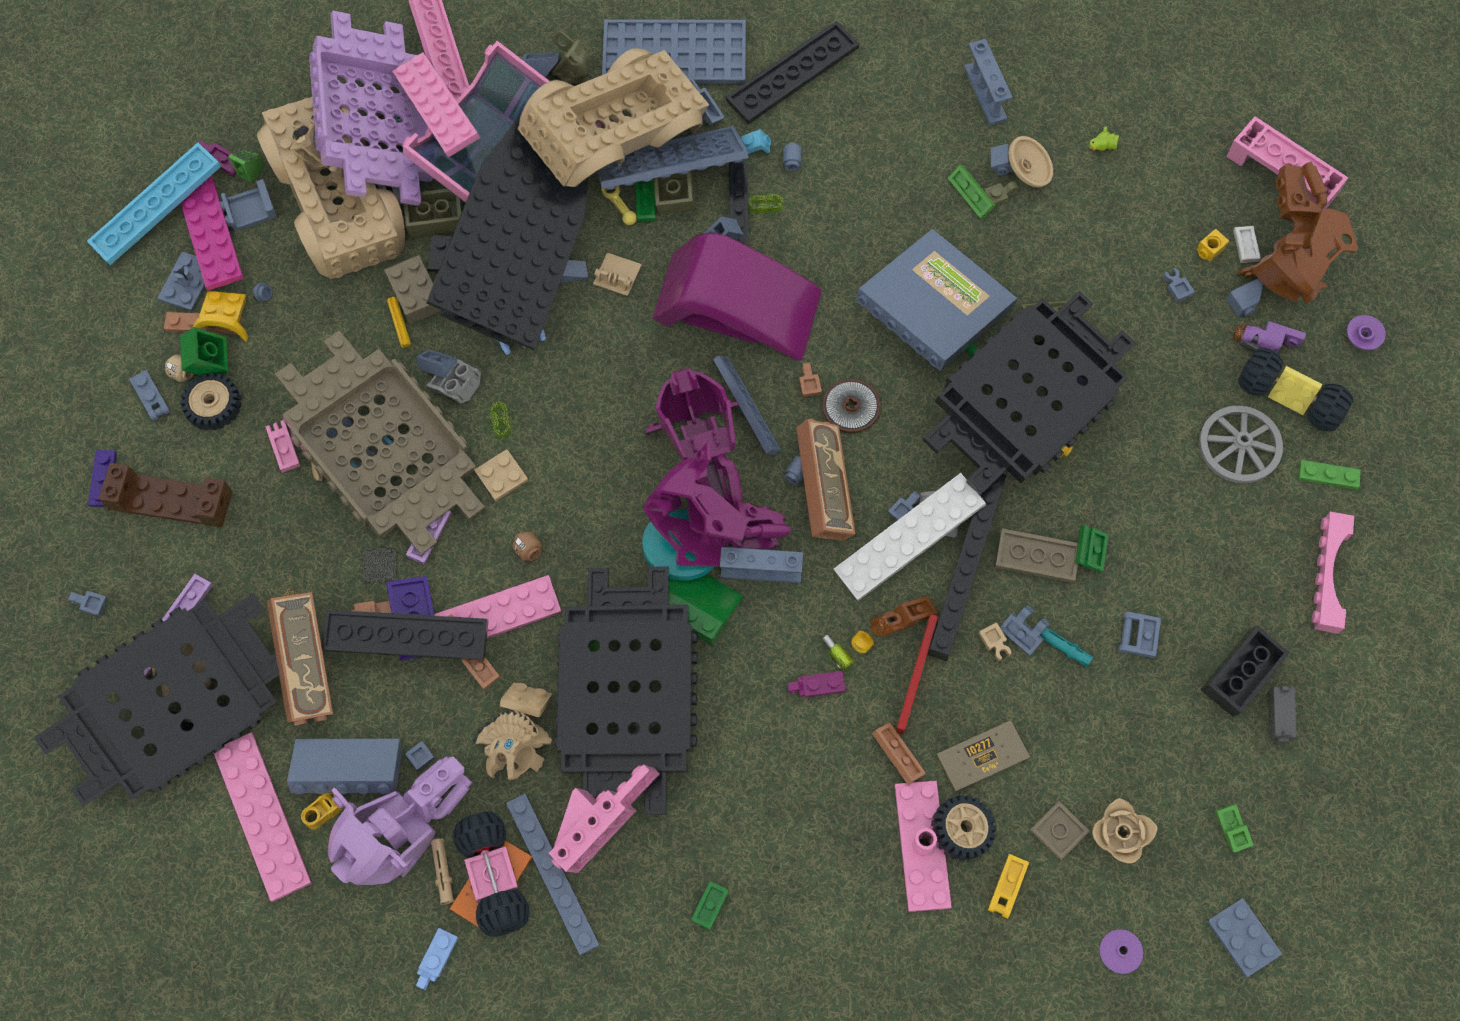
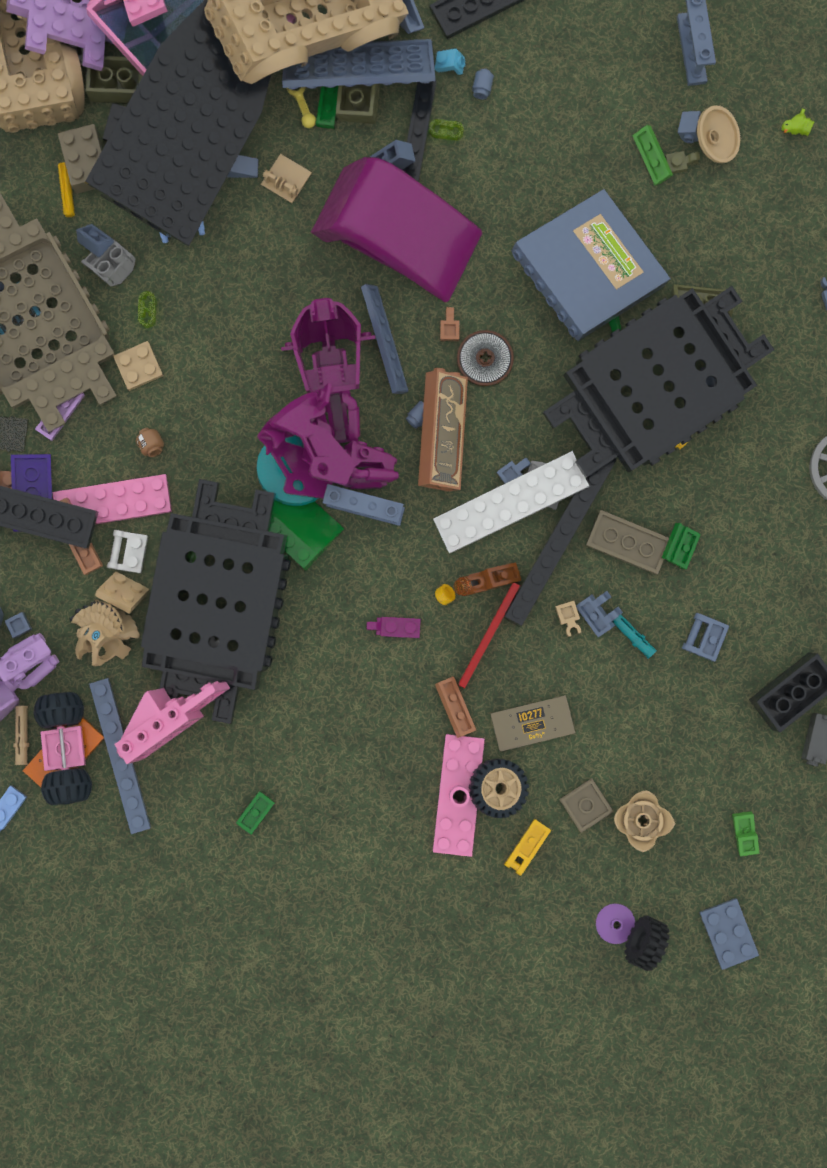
camera: 10 degrees right, 15 degrees up
(529, 660) = (134, 552): none -> white plate
(838, 654) = (420, 602): clear neon green piece -> none
(1160, 959) = (647, 943): none -> black tyre

